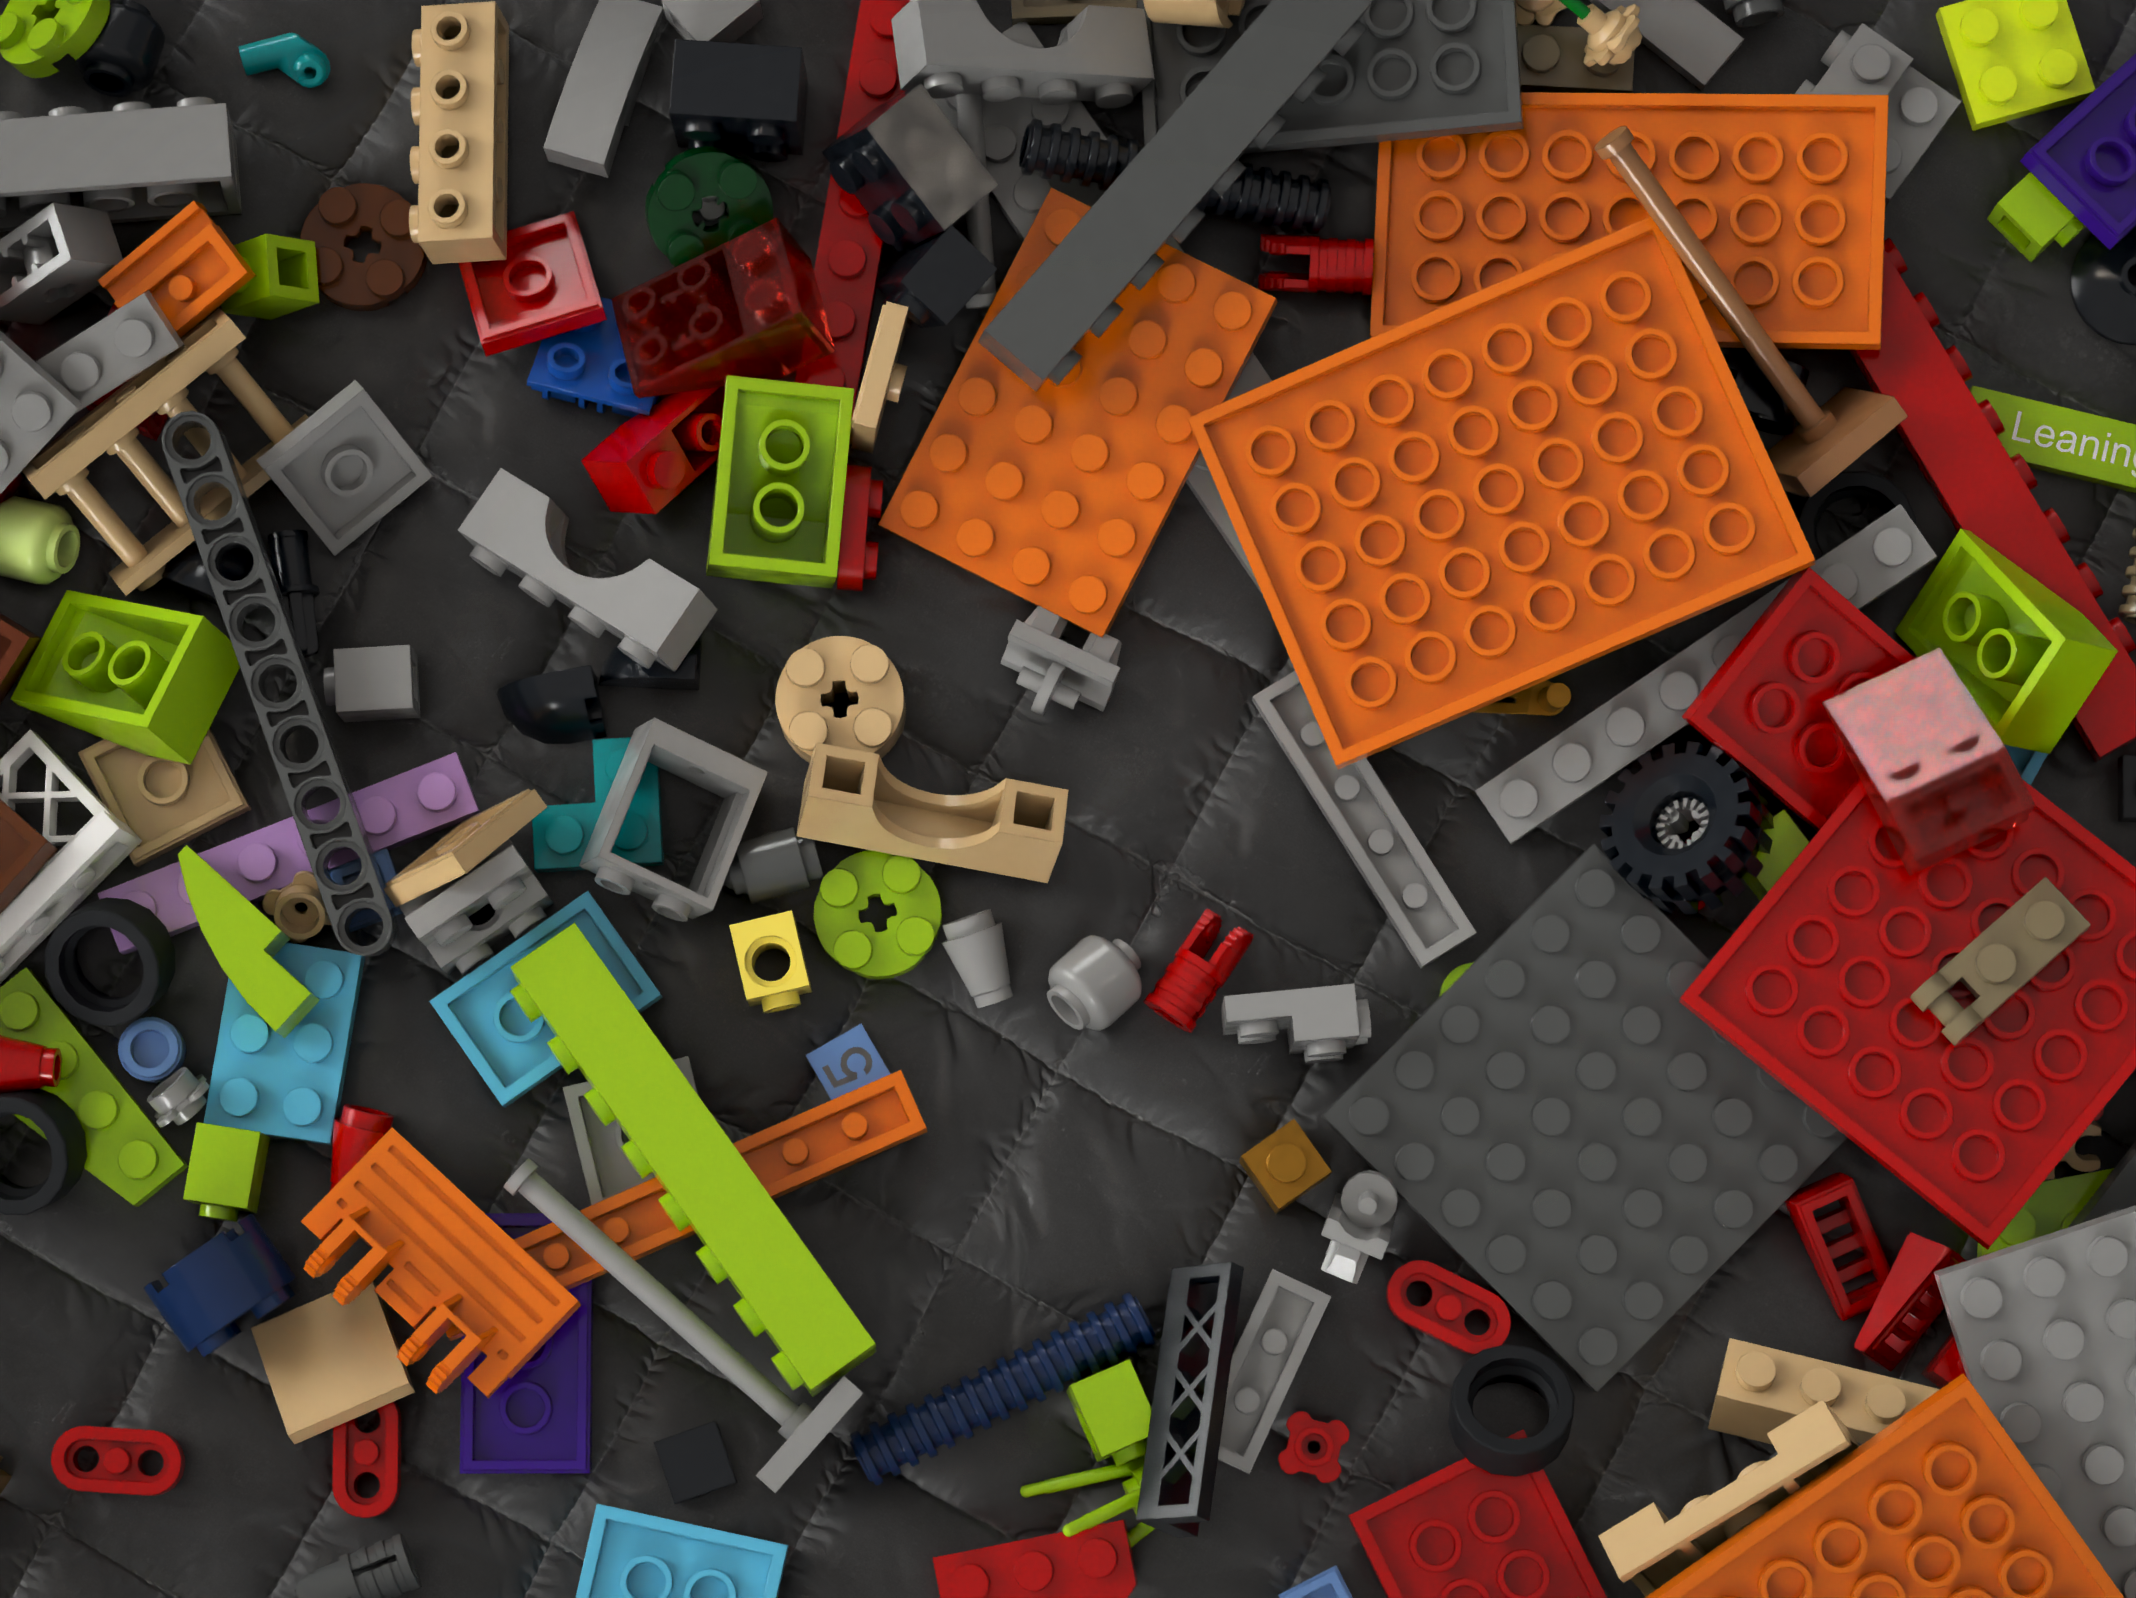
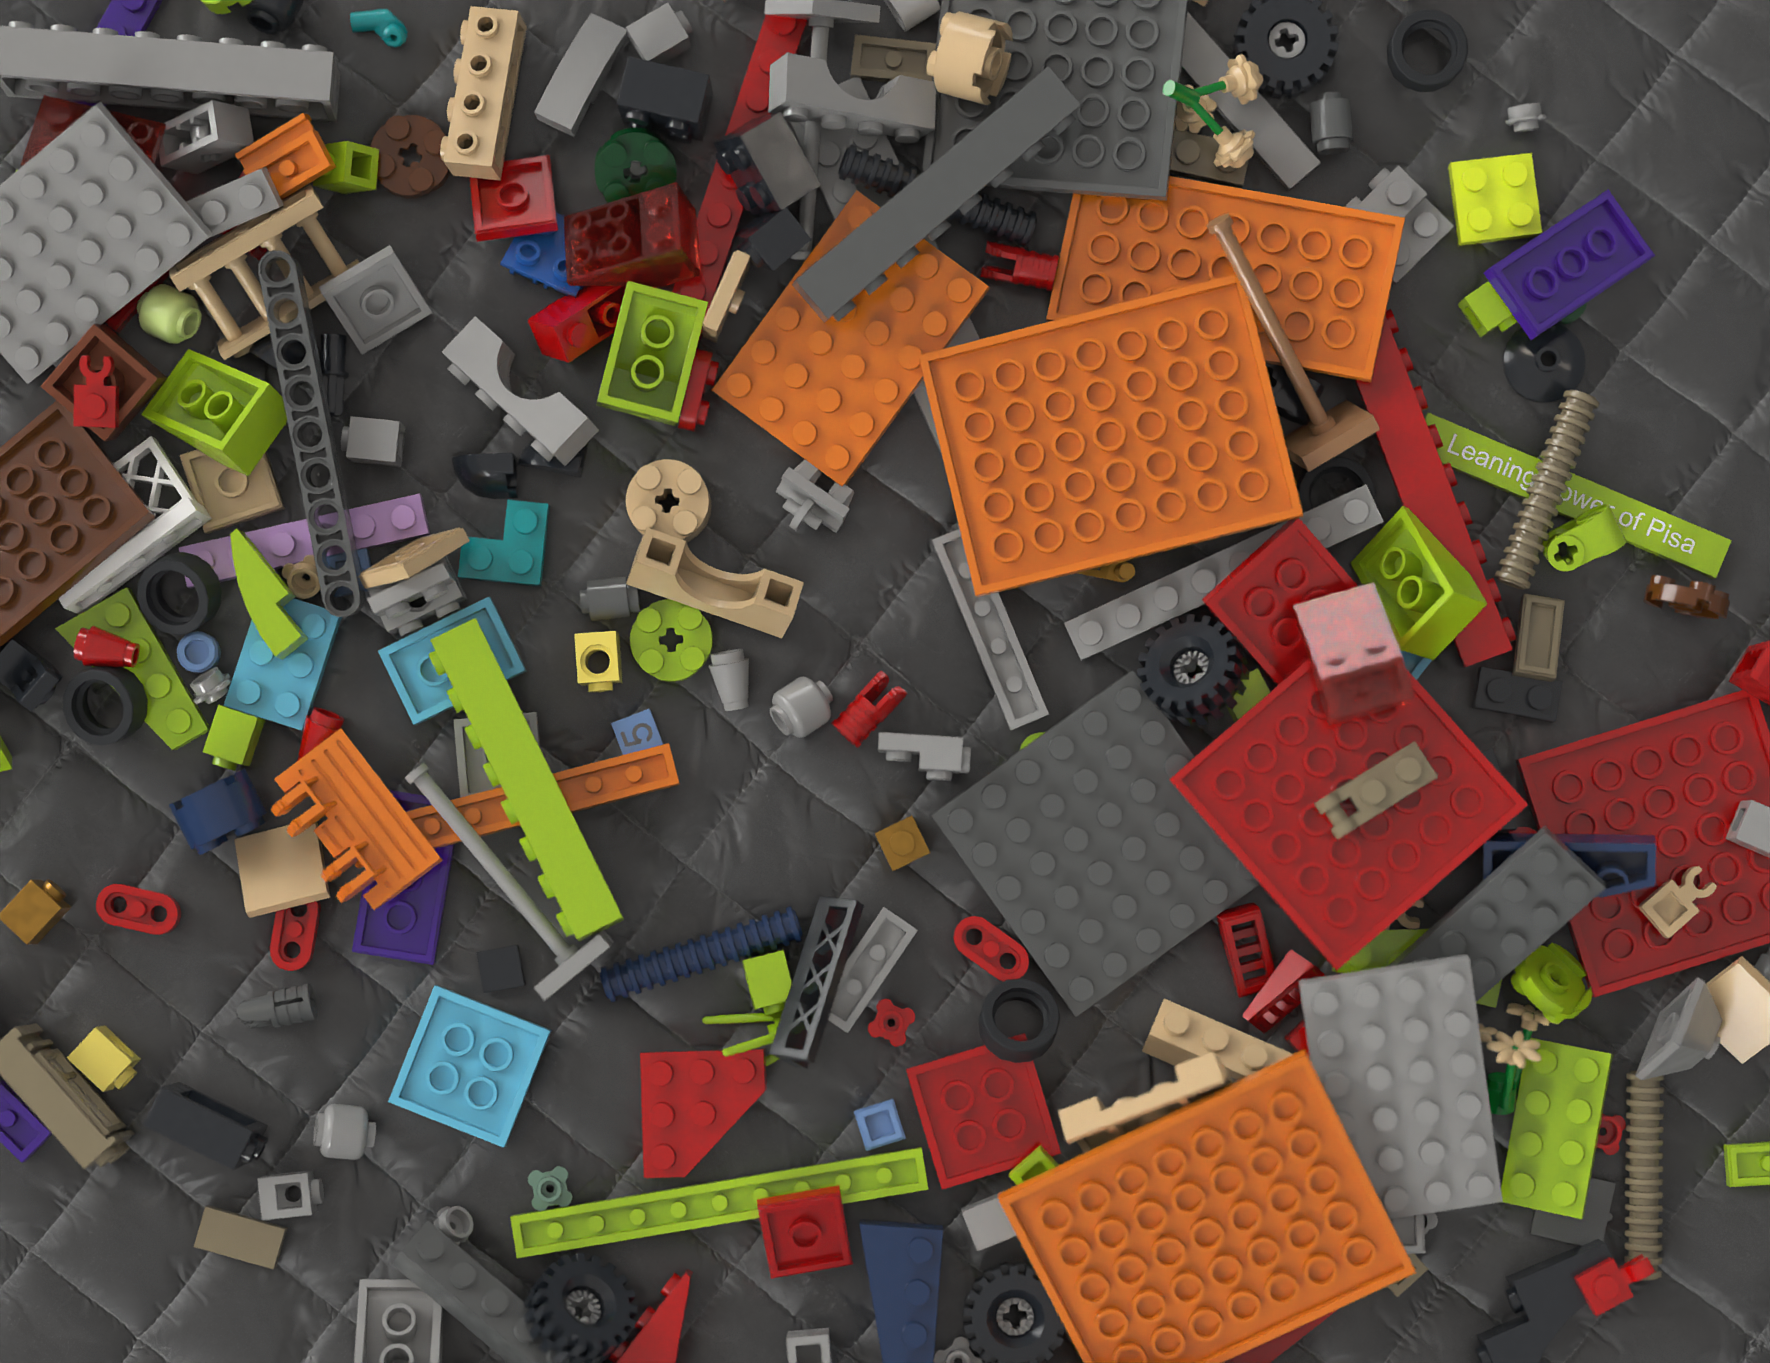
camera: 10 degrees right, 5 degrees up
(701, 765) = (574, 528): light grey window -> none
(1359, 1224) = (942, 889): light grey hips -> none

